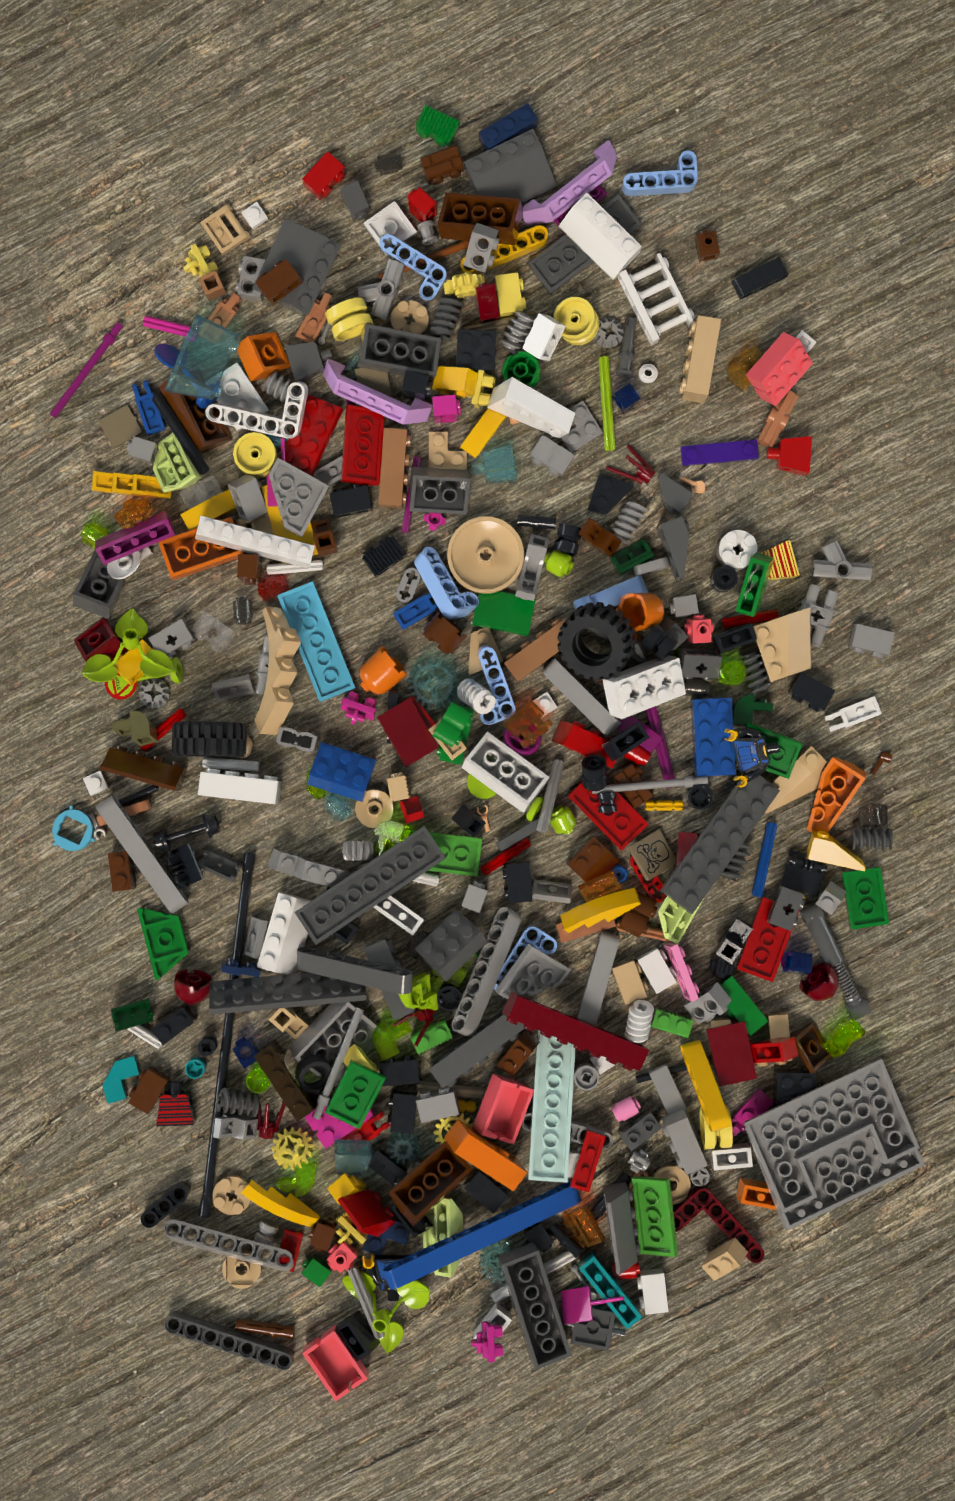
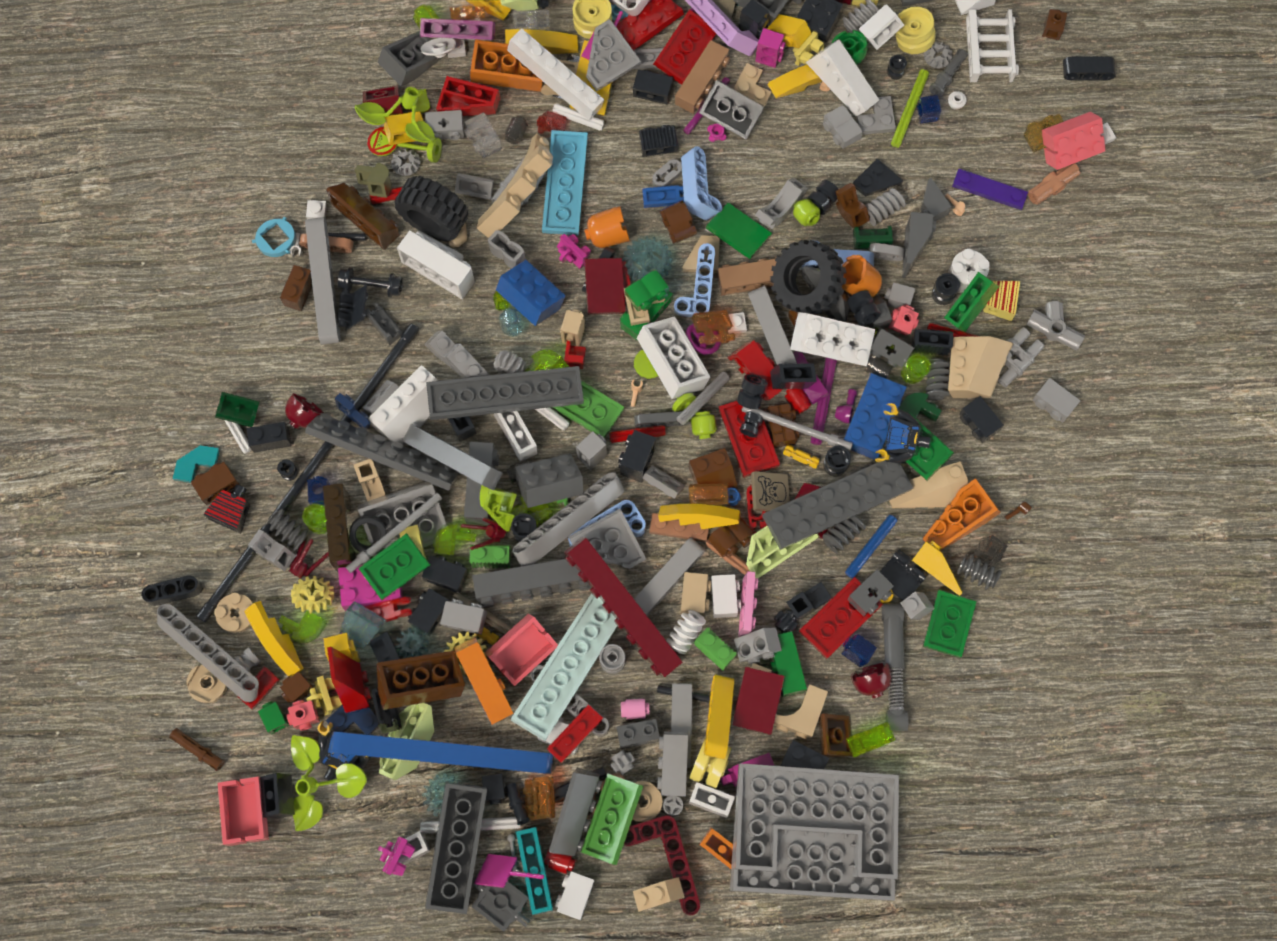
camera: 30 degrees right, 15 degrees down
(163, 939) = (300, 363): green wing -> none
(179, 603) = (468, 97): none -> red wedge
(196, 1067) = (264, 480): teal wheel -> none
(219, 1342) = (150, 739): dark grey beam -> none
(248, 497) = (568, 41): light grey brick -> none
(249, 568) = (539, 96): reddish brown brick -> none
(324, 537) = (615, 103): reddish brown brick -> none
(364, 811) = (543, 330): tan dish -> none
(364, 1298) = (302, 763): light grey axle -> none
(465, 818) = (619, 385): black brick -> none
(476, 696) = (680, 282): white piece -> none
(485, 555) = (746, 176): tan dish -> none
(486, 1190) = (467, 720): black brick -> none
(497, 465) = (791, 113): clear light blue torso -> none
(518, 1053) = (560, 606): reddish brown brick -> none
(536, 521) = (803, 172): black pin -> none
(575, 366) = (896, 66): none -> black wheel
(601, 1064) = (632, 657): white plate -> none
(644, 471) = (916, 174): dark red plant -> none
(684, 745) = (845, 412): none -> magenta bar
(700, 359) = (1007, 104): tan brick -> none
(774, 1050) = (800, 715): red slope -> none
(792, 455) = (1053, 217): red torso -> none
(855, 713) = (1012, 457): white hinge -> none

